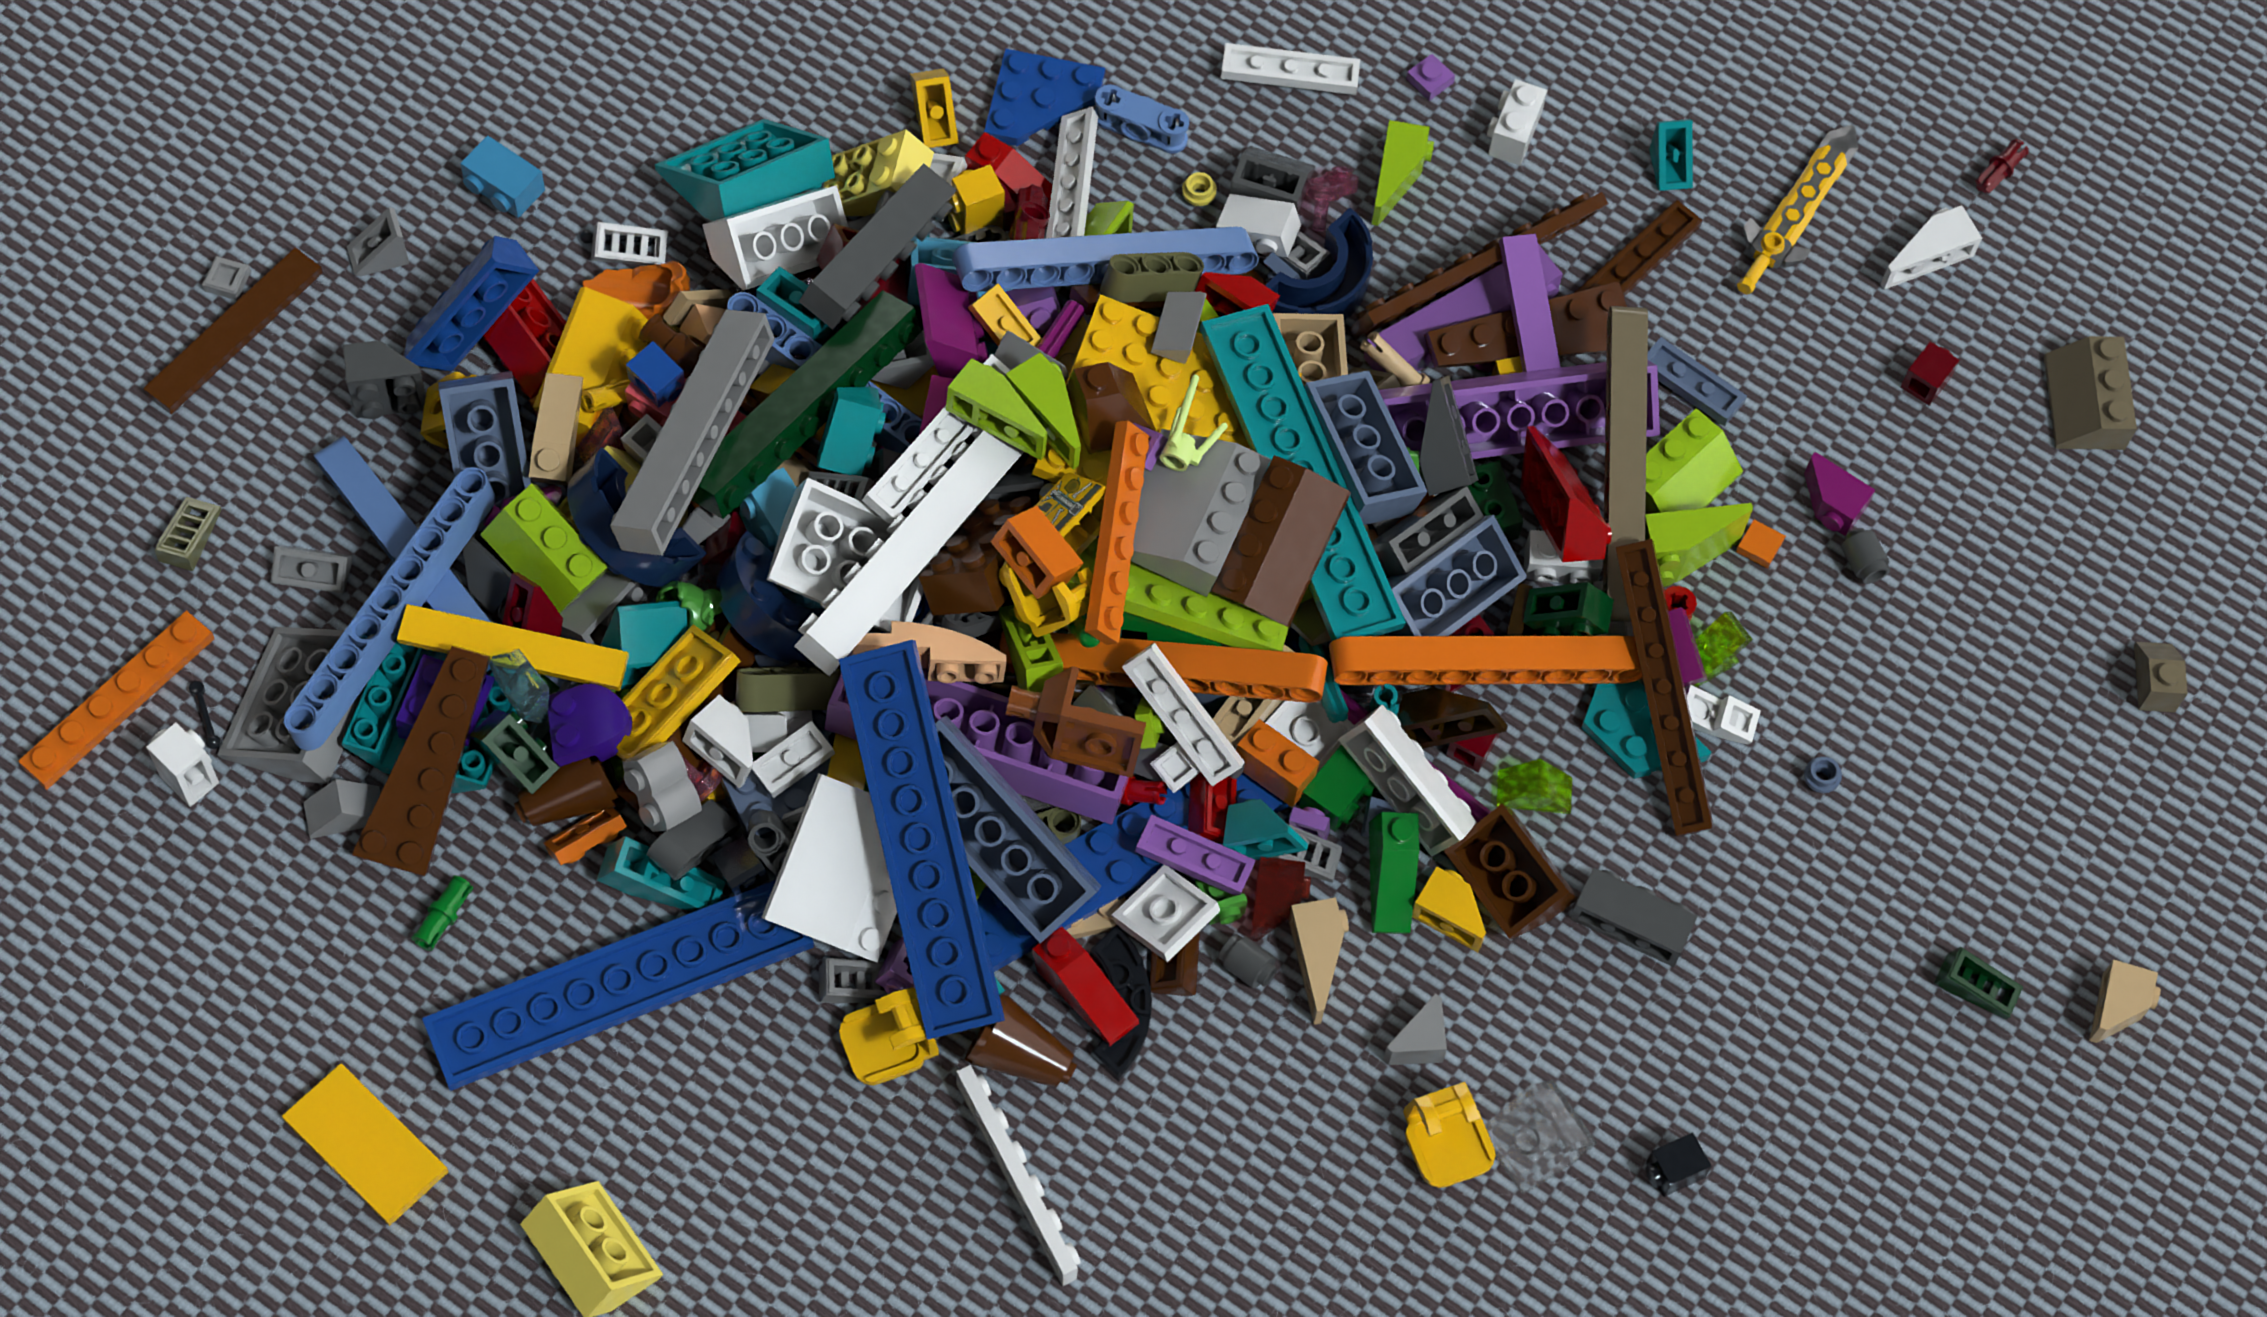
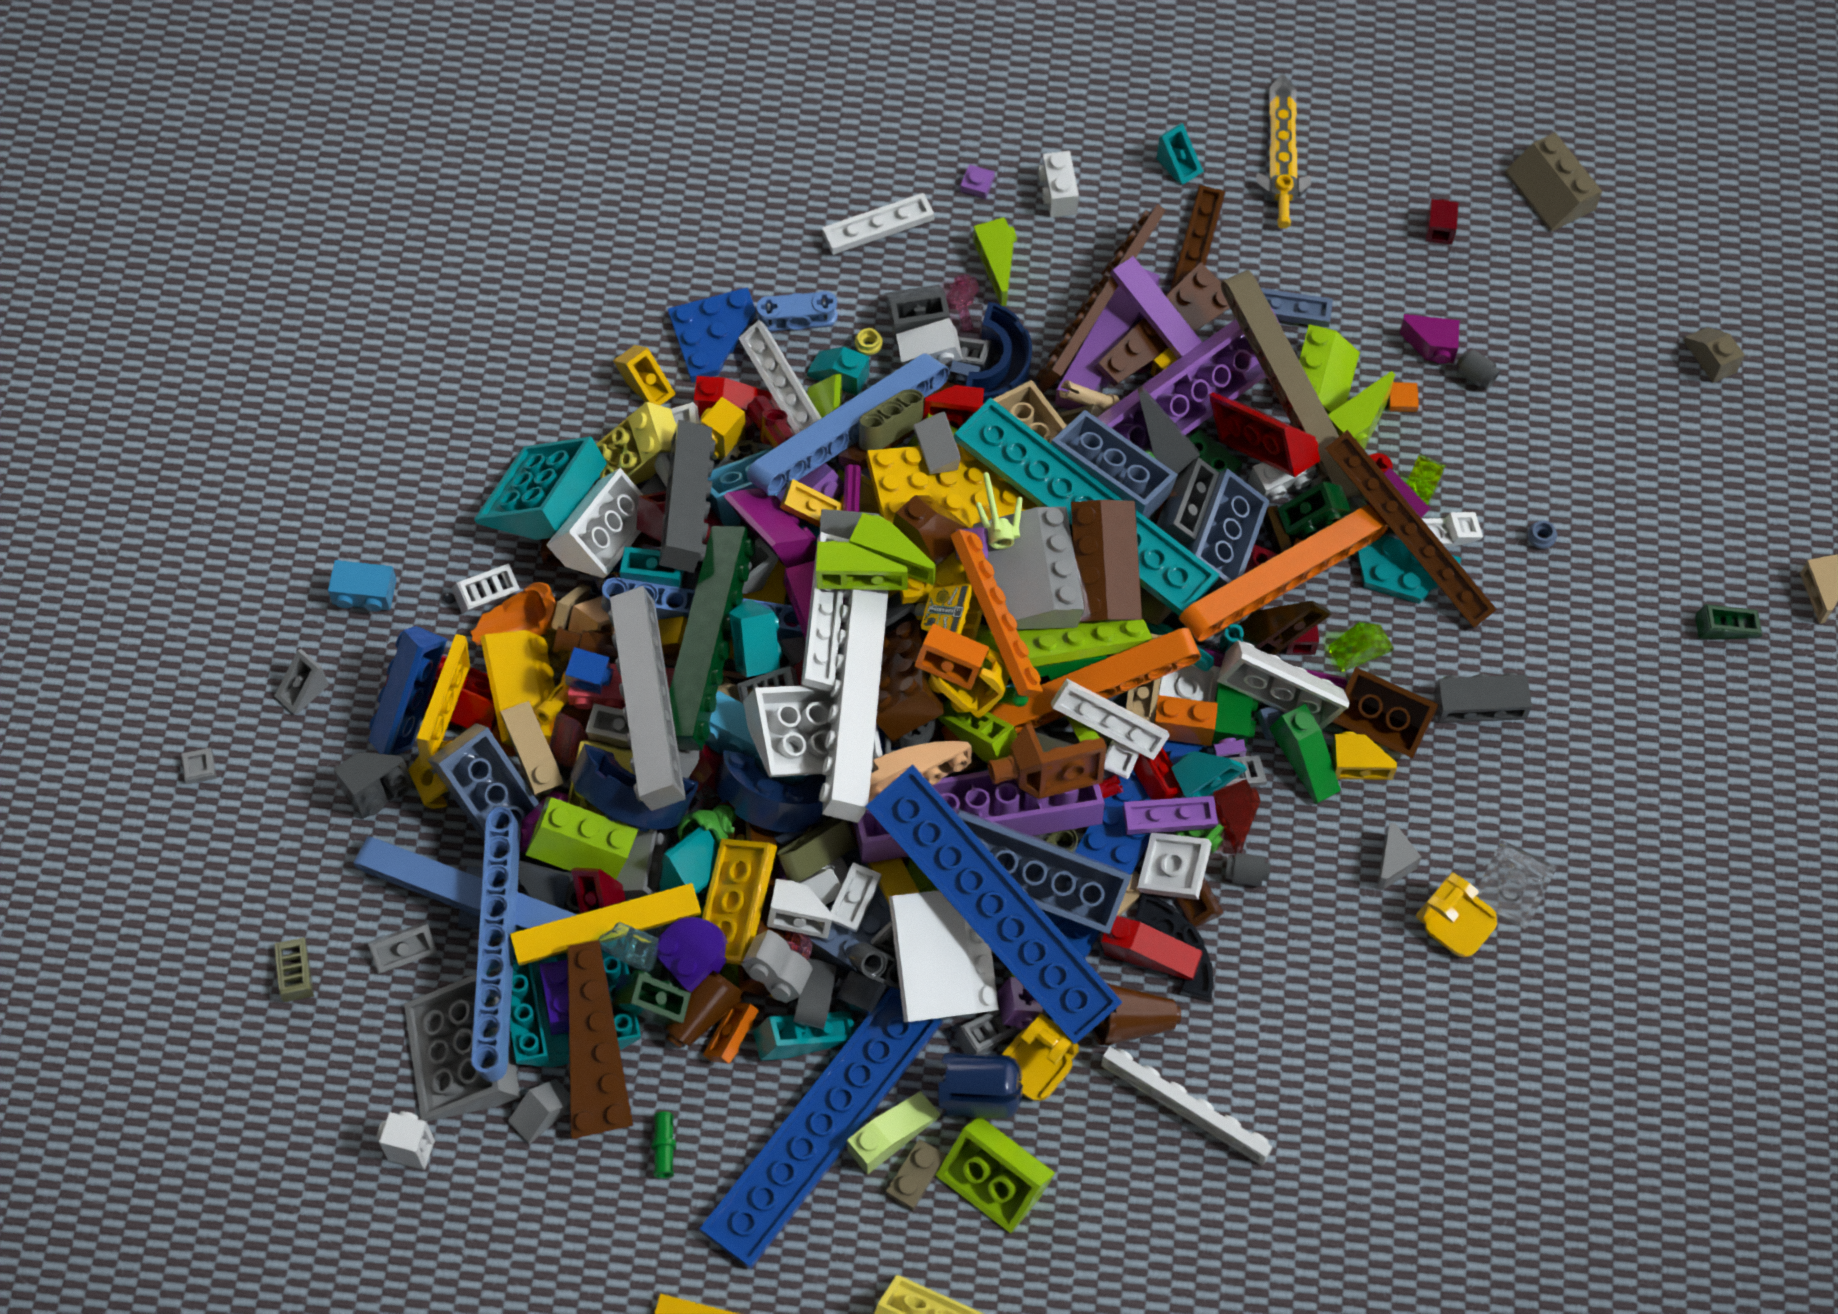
camera: 25 degrees left, 0 degrees up
(116, 700) = (319, 1121): orange plate -> none
(197, 690) = (375, 1081): black hinge -> none
(232, 330) = (229, 802): reddish brown tile -> none
(494, 329) = (443, 700): none -> yellow tile
(684, 1088) = (916, 1174): none -> dark tan plate
(686, 1028) = (891, 1131): none -> yellowish green slope
(766, 1132) = (994, 1173): none -> lime slope
(802, 1030) = (980, 1086): none -> dark blue cylinder
(1154, 202) = (844, 361): none -> teal slope
(1317, 937) = (1287, 831): tan slope -> none
(1677, 1165) = (1616, 852): black brick -> none
(1941, 242) = (1393, 126): white slope -> none
(2001, 166) = (1398, 54): dark red axle -> none

